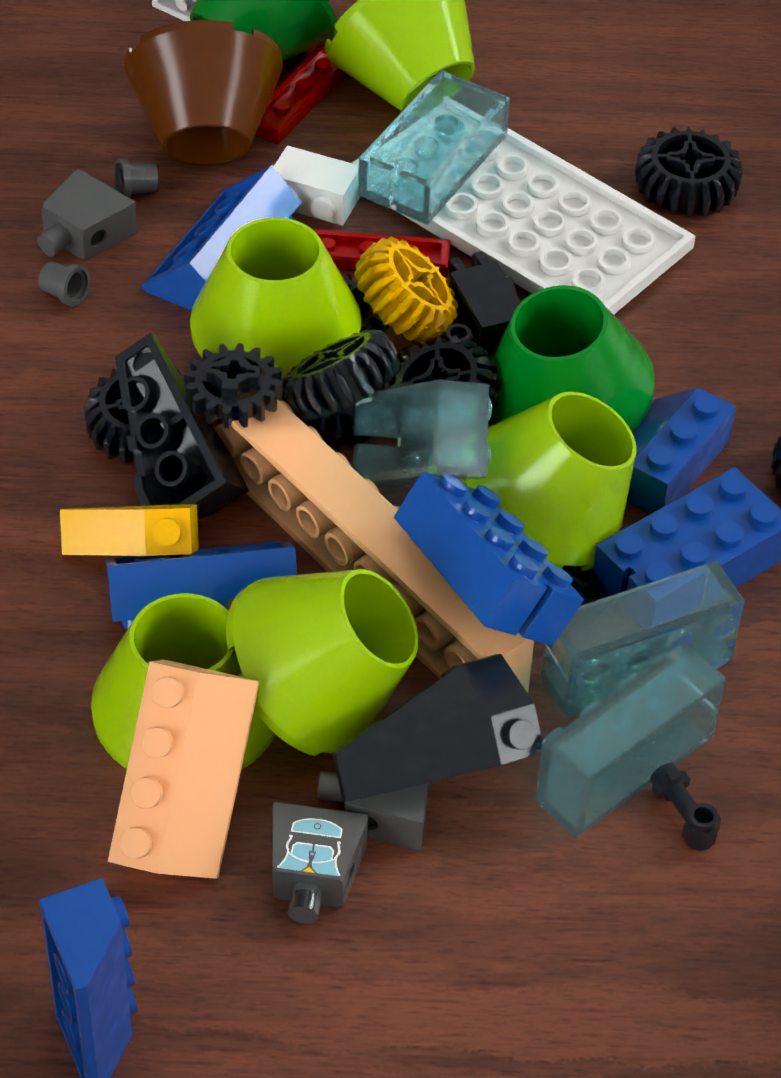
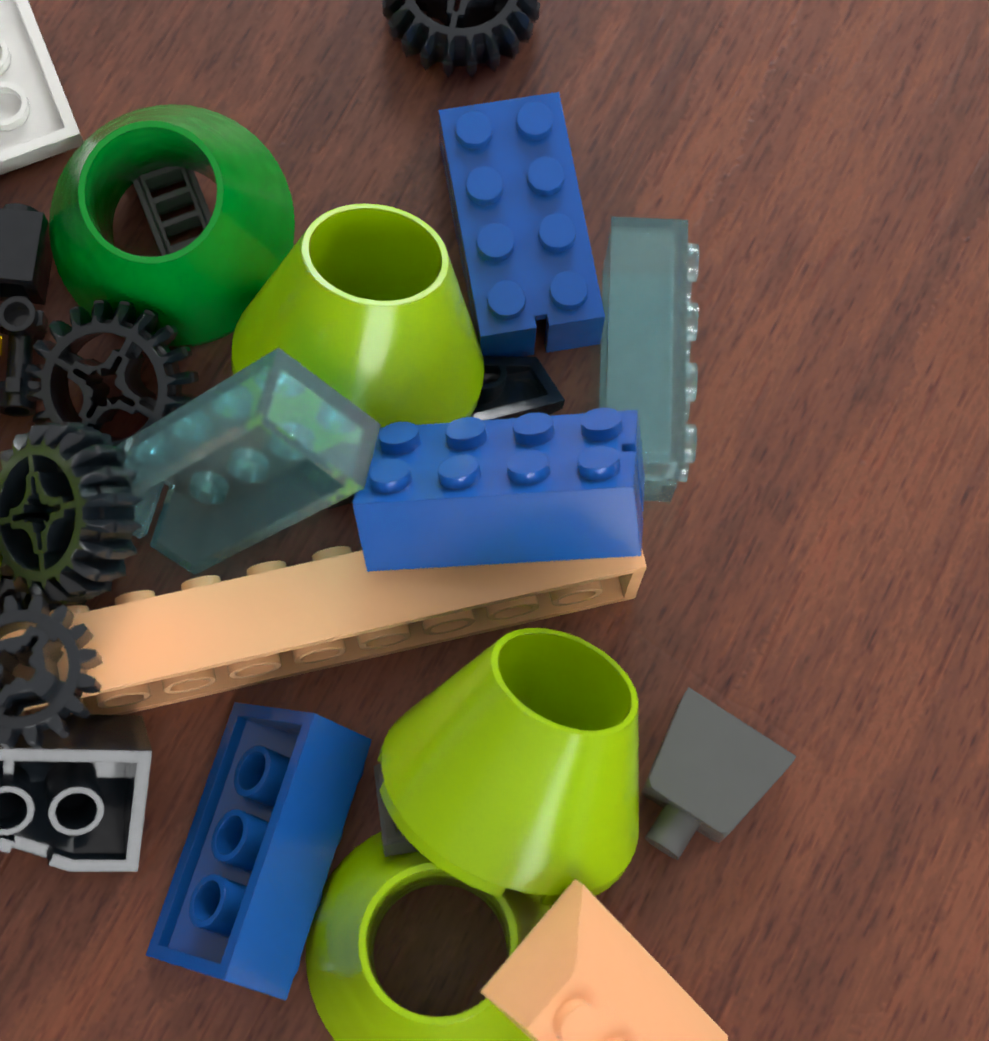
camera: 65 degrees left, 25 degrees up
(130, 530) = (144, 907): yellow slope -> none
(315, 857) = (768, 907): dark grey torso -> none
(454, 727) = (723, 653): black wedge -> none
(626, 737) = (782, 453): clear light blue piece -> none
(677, 445) = (333, 146): blue slope -> none
(700, 819) = (903, 440): black bar -> none

